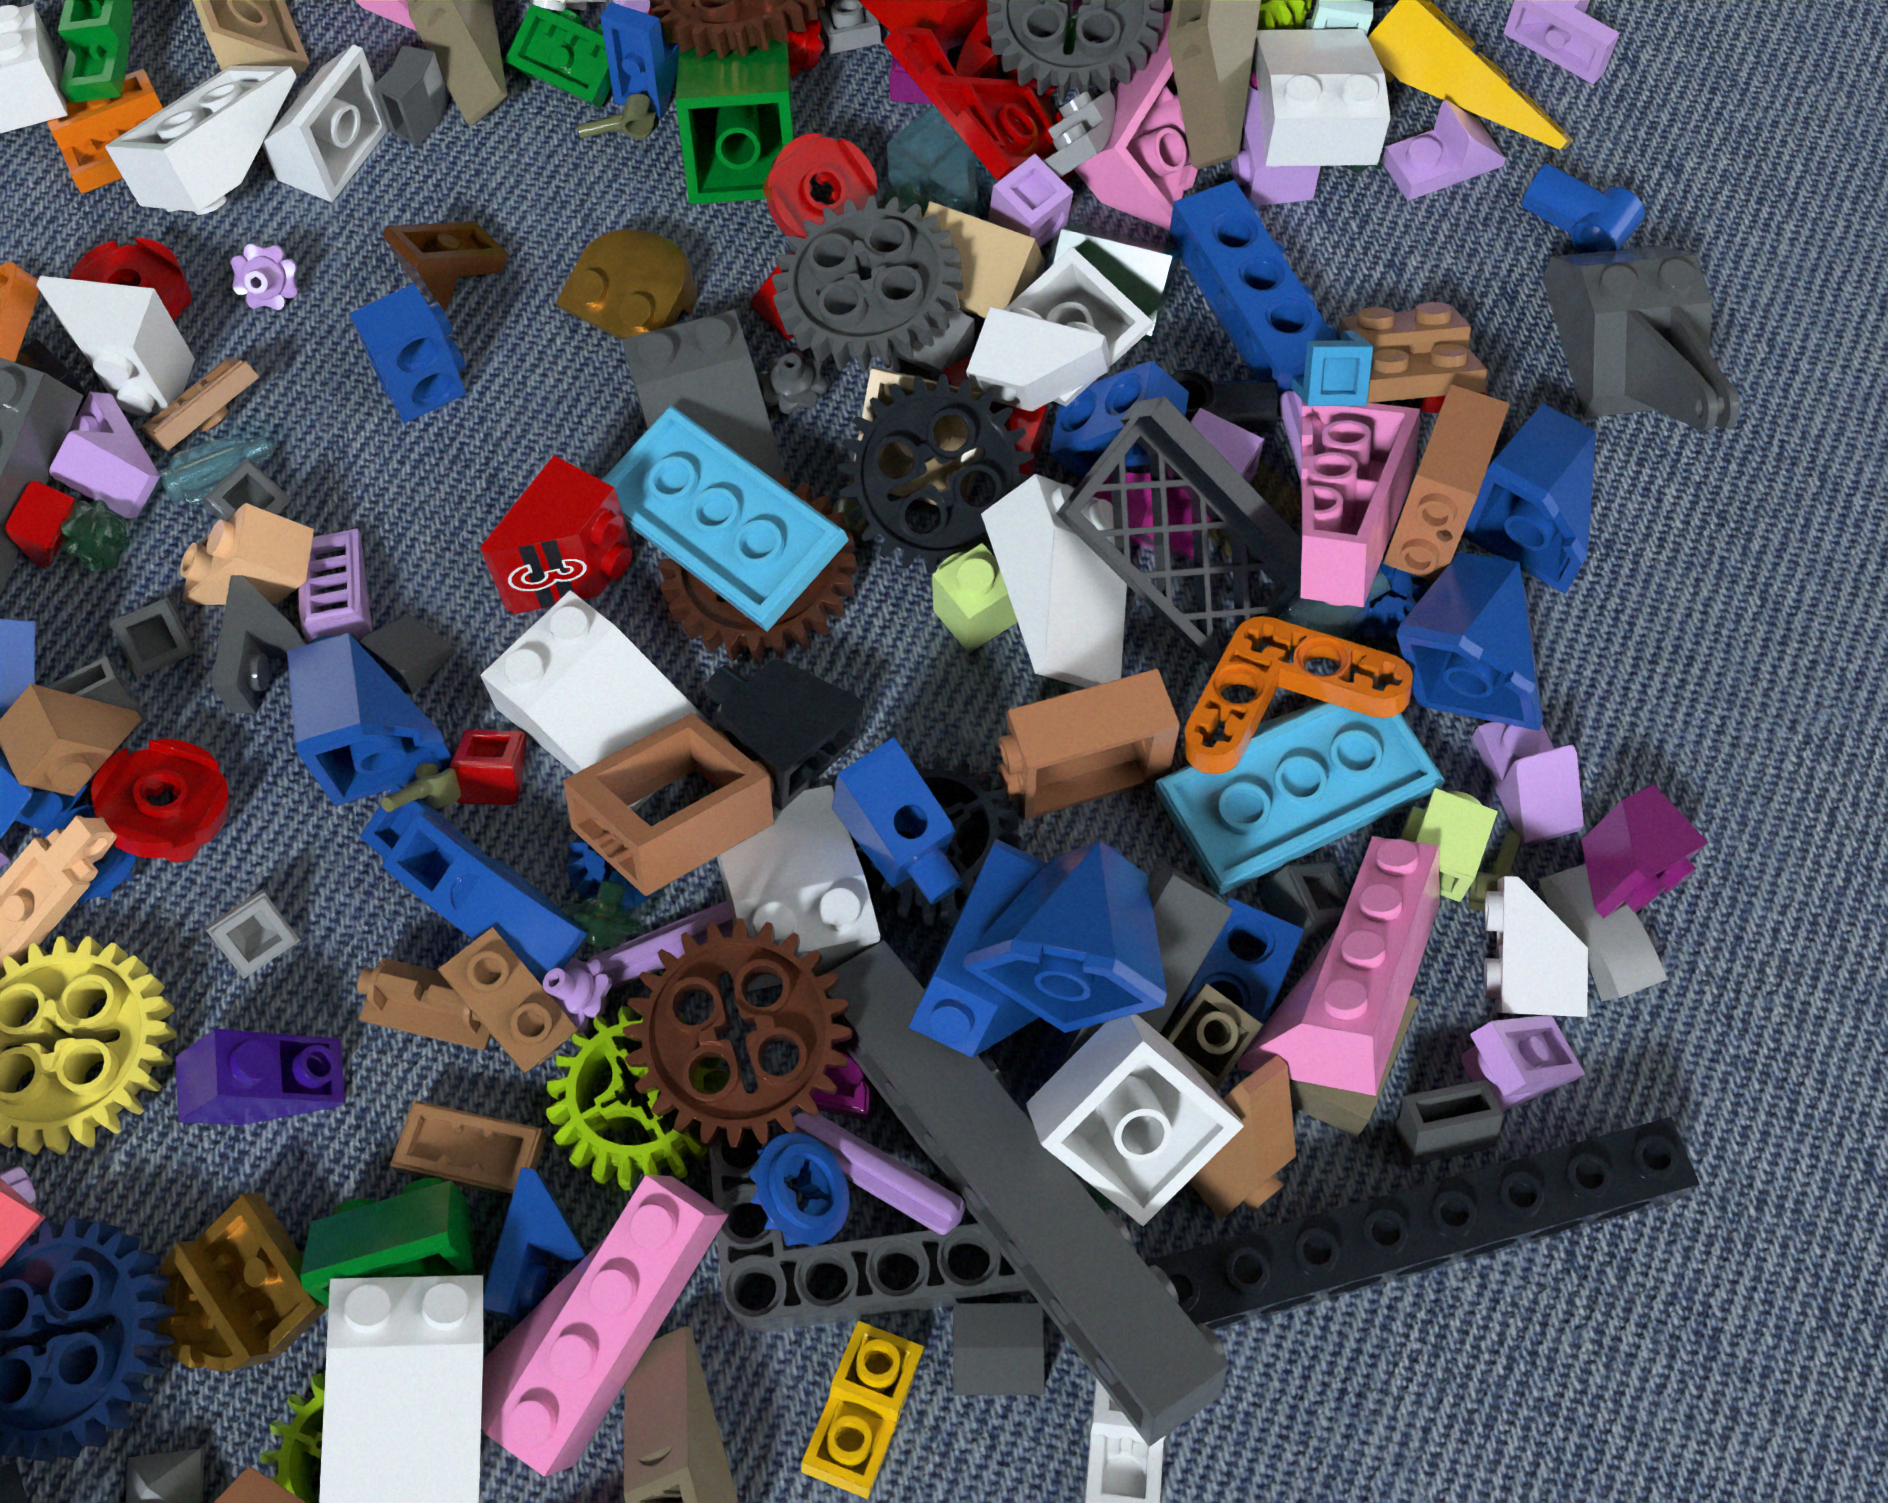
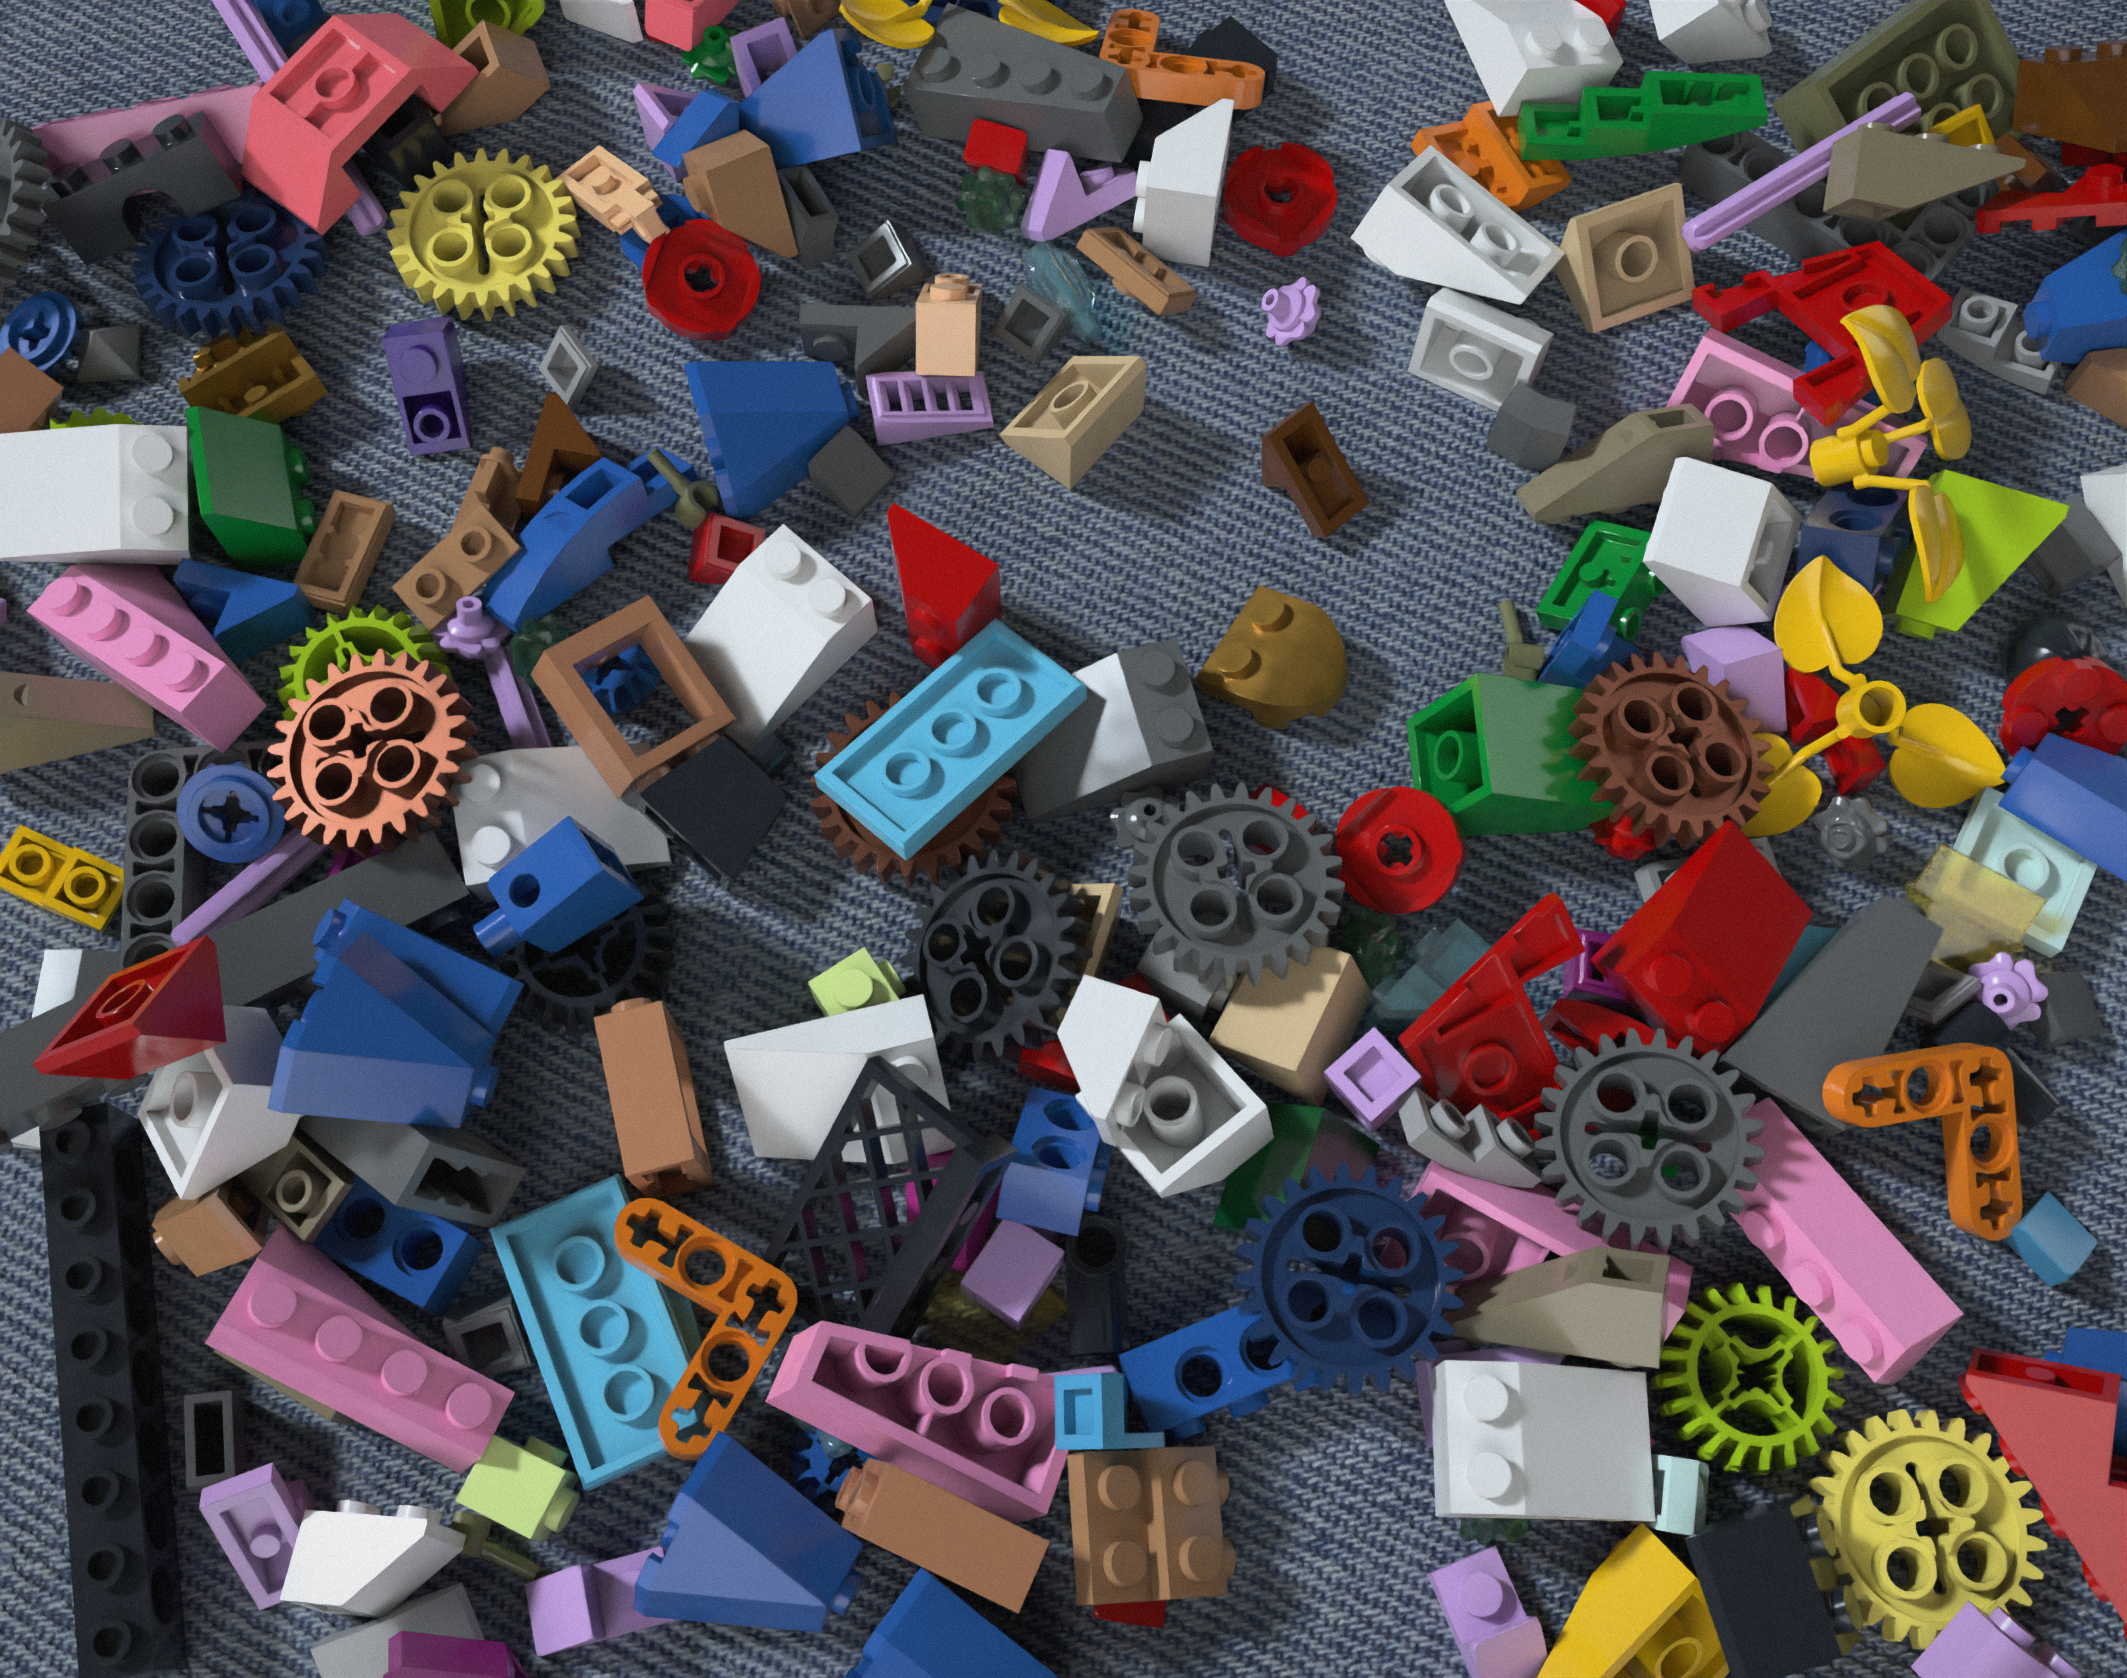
camera: 90 degrees right, 5 degrees up
(359, 447) = (1079, 415): none -> tan slope
(361, 925) = (555, 456): none -> reddish brown slope
(411, 351) = (1171, 440): blue brick -> none
(1068, 1158) = (144, 1018): none -> red slope
(1249, 214) = (1336, 1342): none -> dark blue gear

